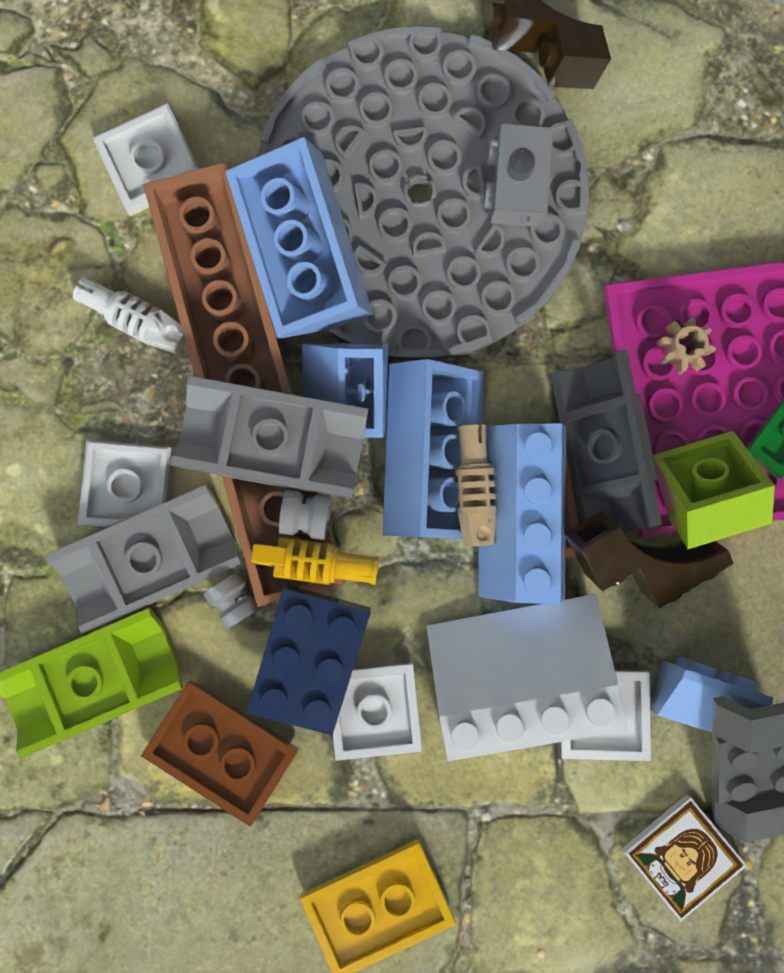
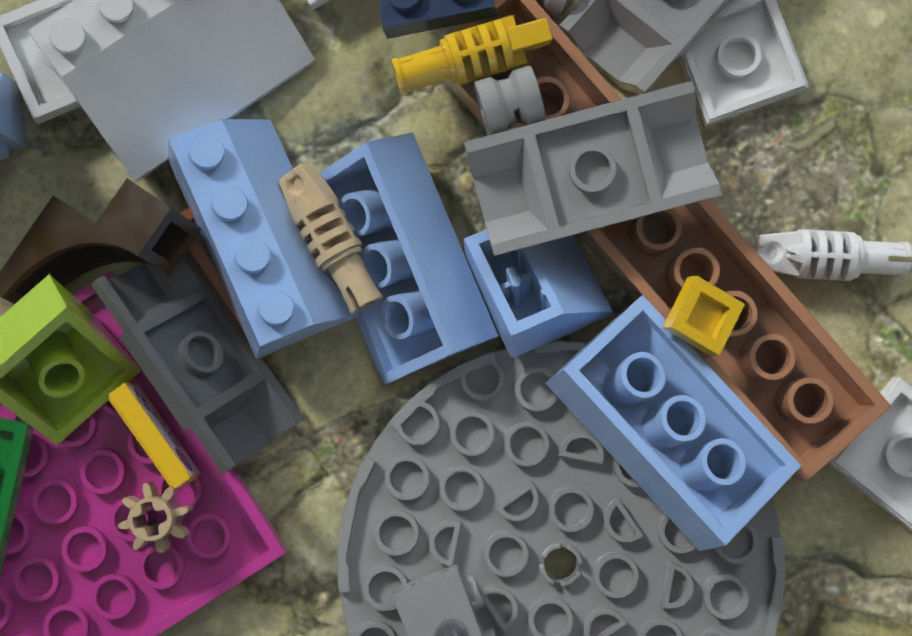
camera: 155 degrees right, 0 degrees up
(242, 301) = (703, 315): none -> yellow plate
(662, 402) = (154, 435): none -> yellow tile

